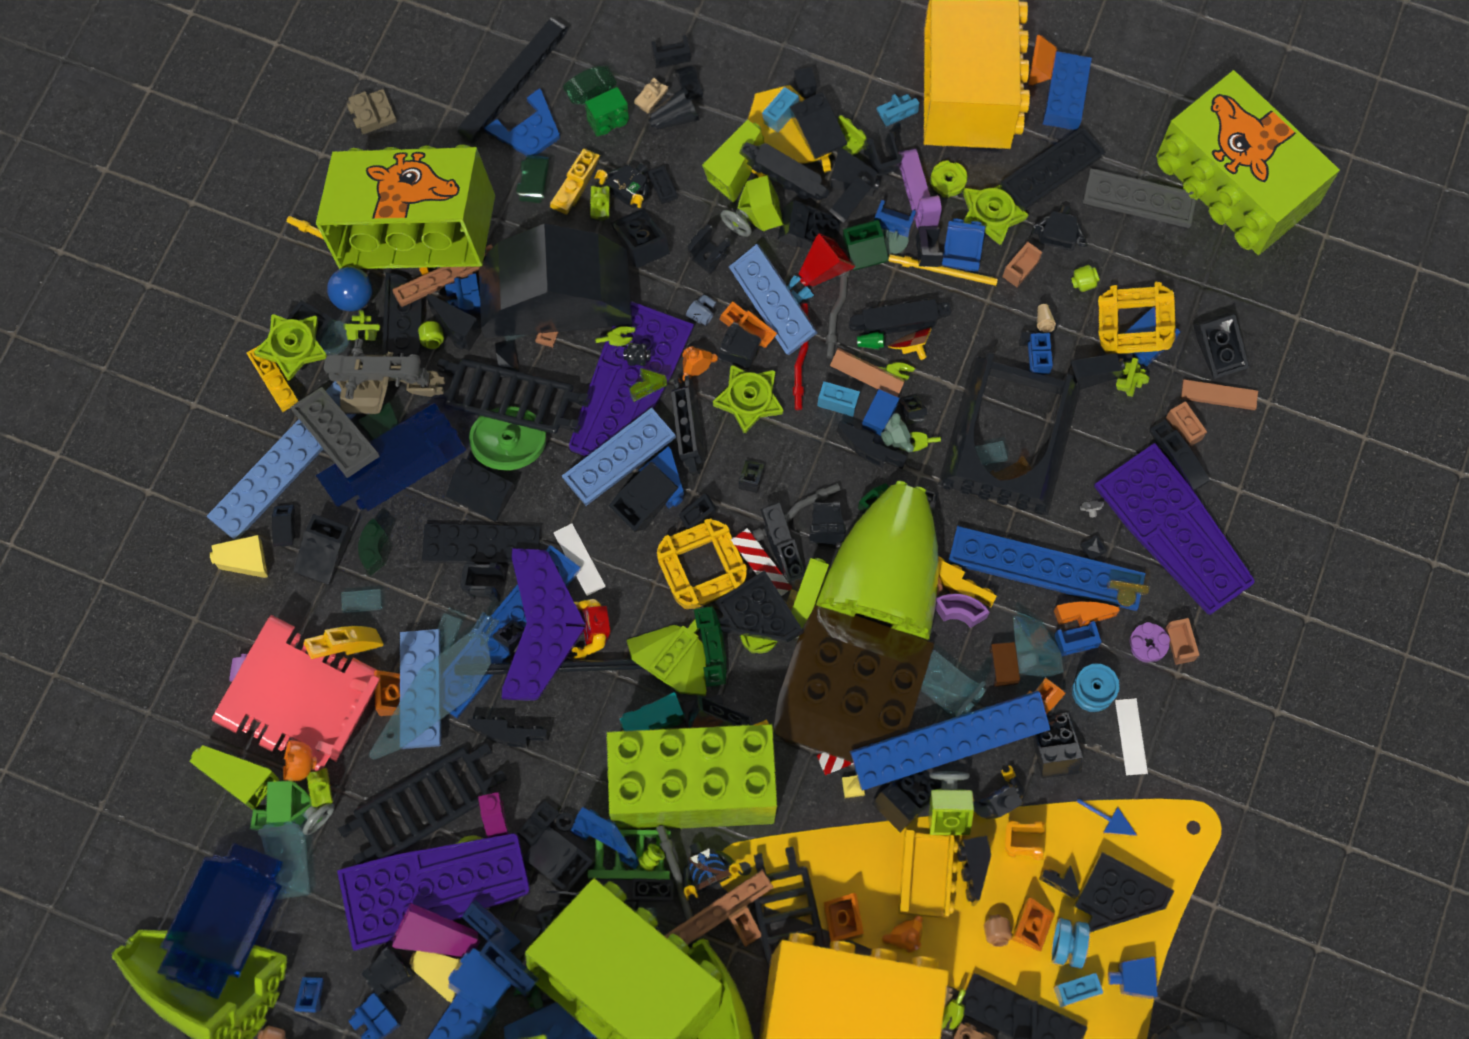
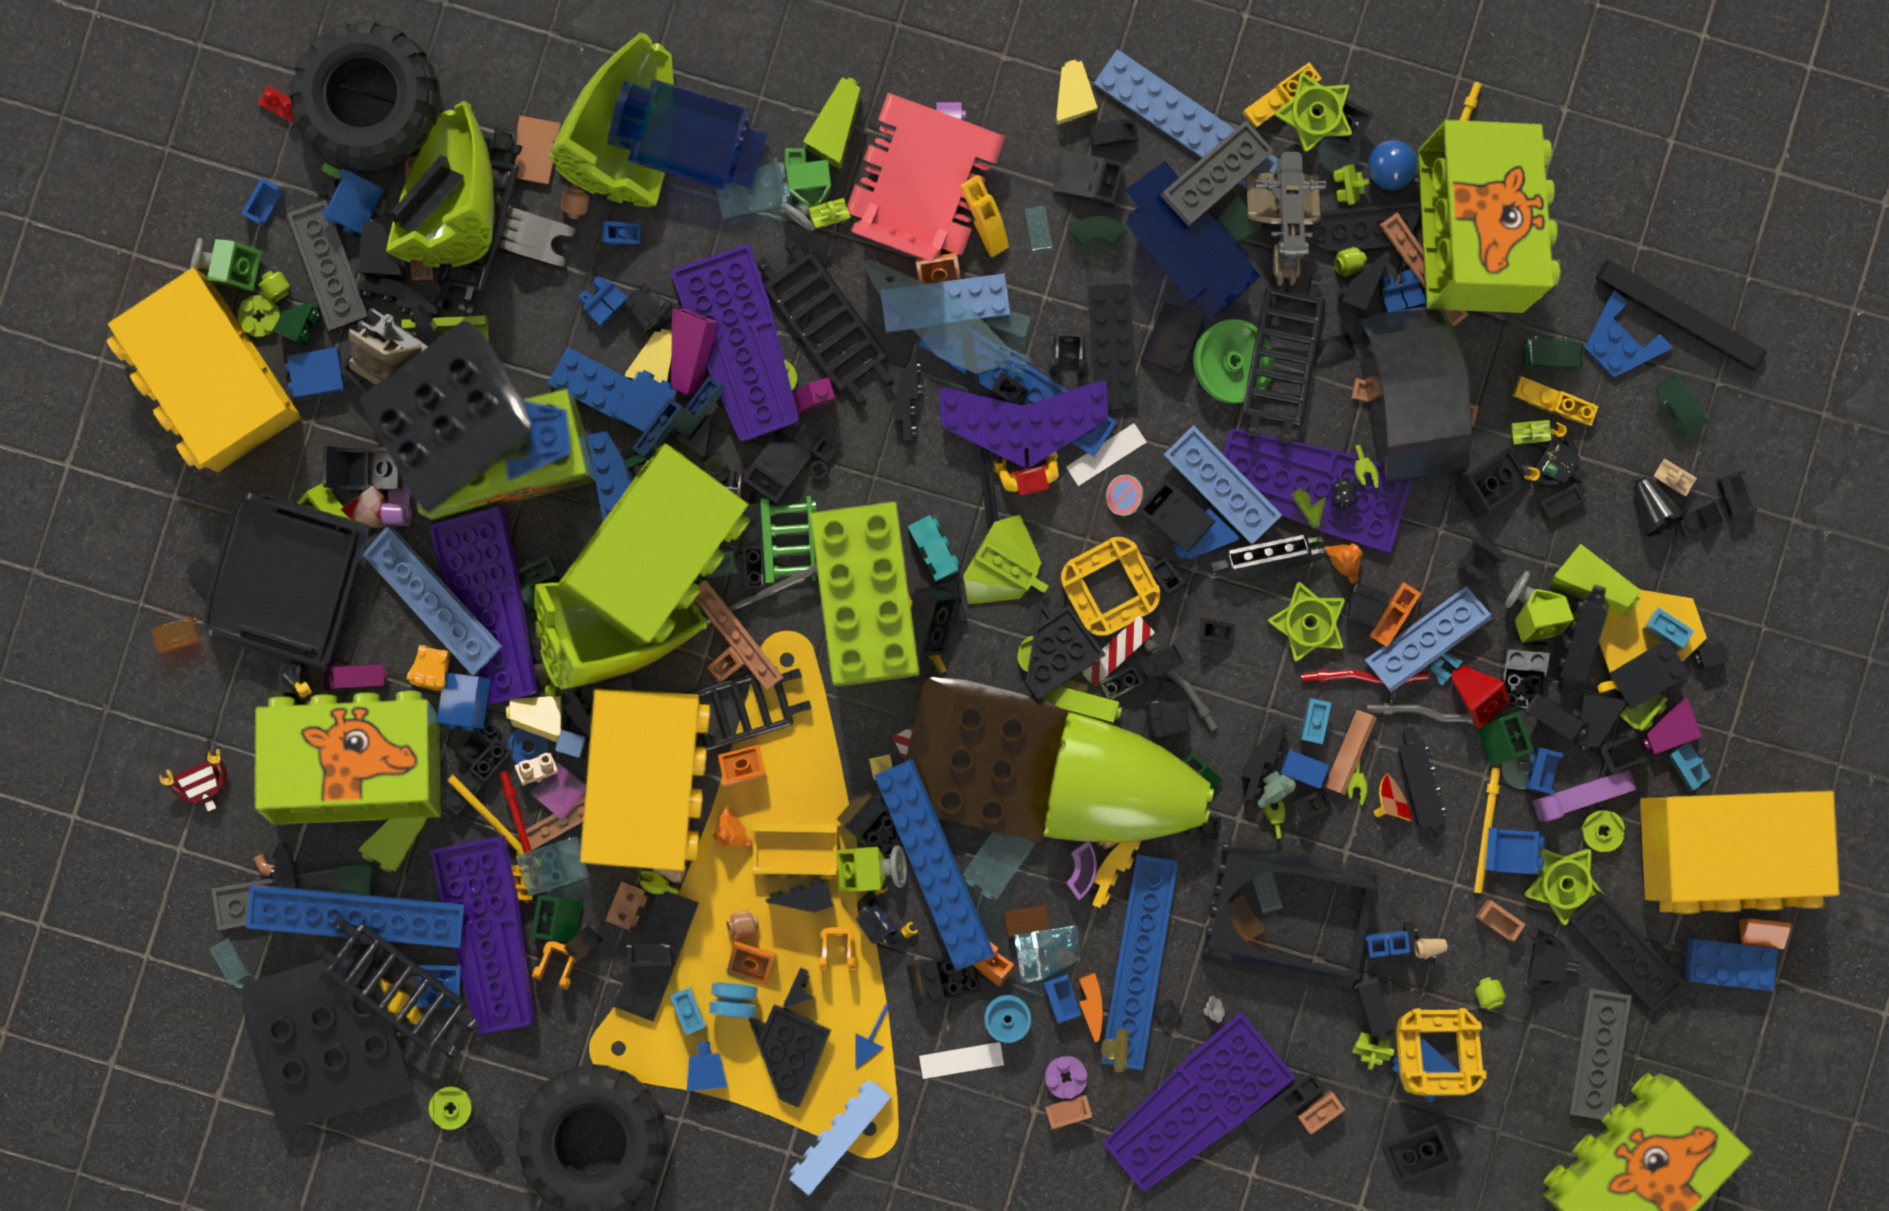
camera: 90 degrees right, 15 degrees up
(298, 761) = (851, 188): orange cylinder -> none
(371, 111) = (1624, 157): dark tan plate -> none
(591, 824) = (811, 496): blue wing -> none
(607, 112) = (1645, 428): green brick -> none
(619, 543) = (1124, 495): none -> piece
(651, 857) = (785, 562): lime bush -> none
(699, 312) = (1406, 557): sand blue piece -> none
(707, 869) = (780, 620): torso -> none
(713, 646) = (1017, 607): dark green slope -> none
(865, 115) = (1672, 729): none -> magenta slope
(871, 340) = (1390, 754): green cone -> none
(928, 246) = (1511, 812): black panel -> none
(1203, 854) = (839, 1137): none -> light blue brick
(1219, 394) = (1362, 1150): nougat tile -> none

